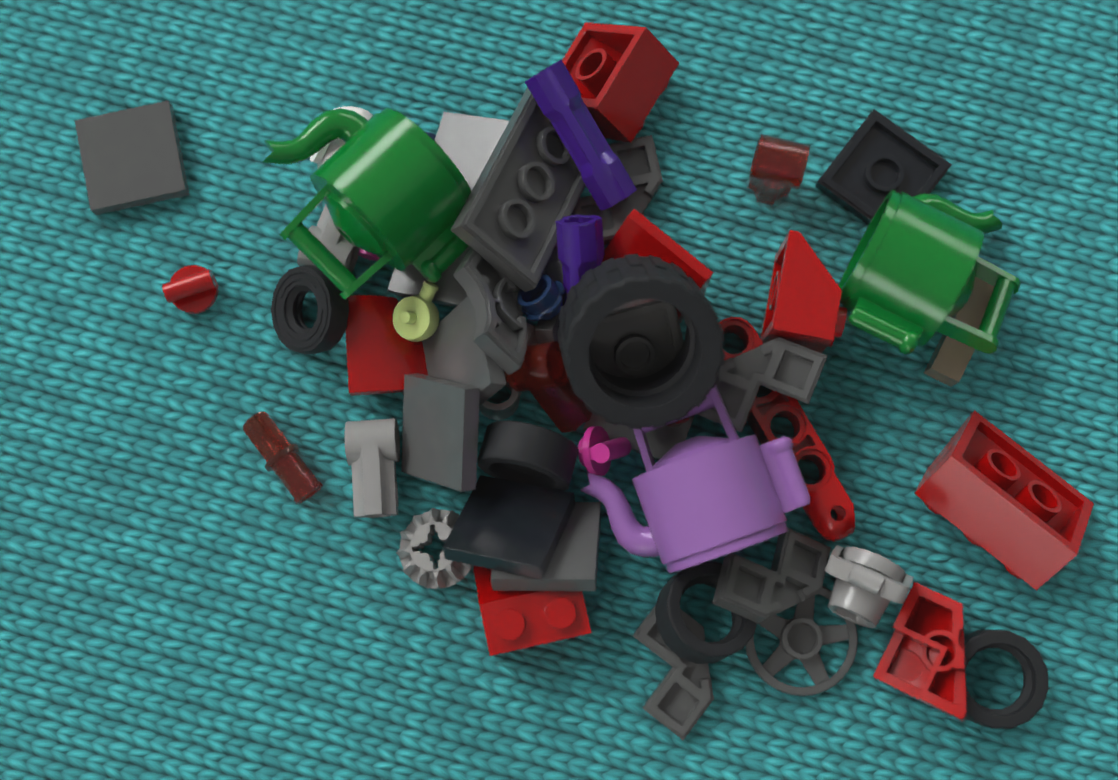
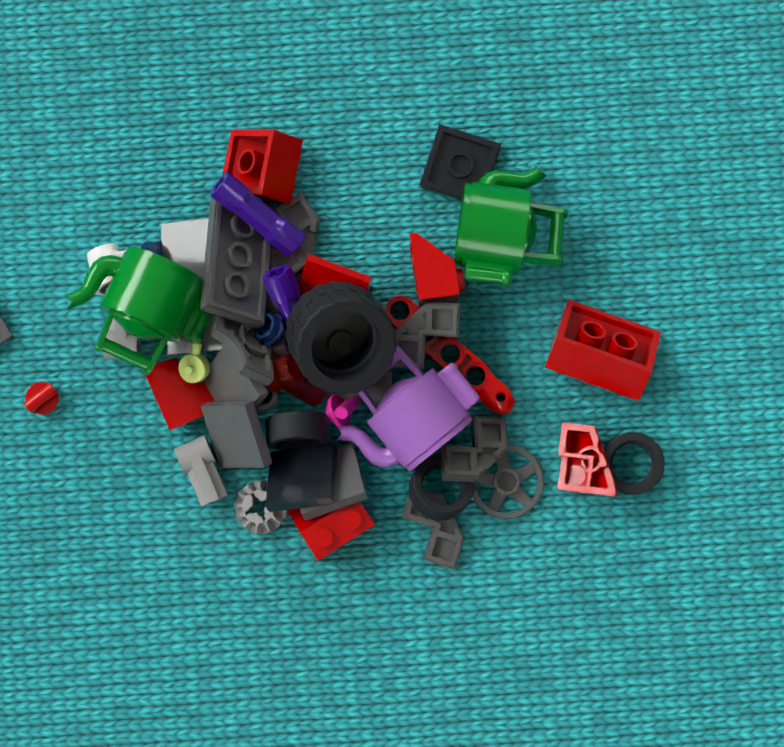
camera: 25 degrees left, 5 degrees up
(281, 457) = (140, 485): clear red axle -> none
(288, 316) = (110, 394): black tyre -> none
(777, 168) = (389, 190): clear red piece -> none
(864, 585) = (532, 435): light grey piece -> none
(951, 355) = (542, 274): dark tan piece -> none

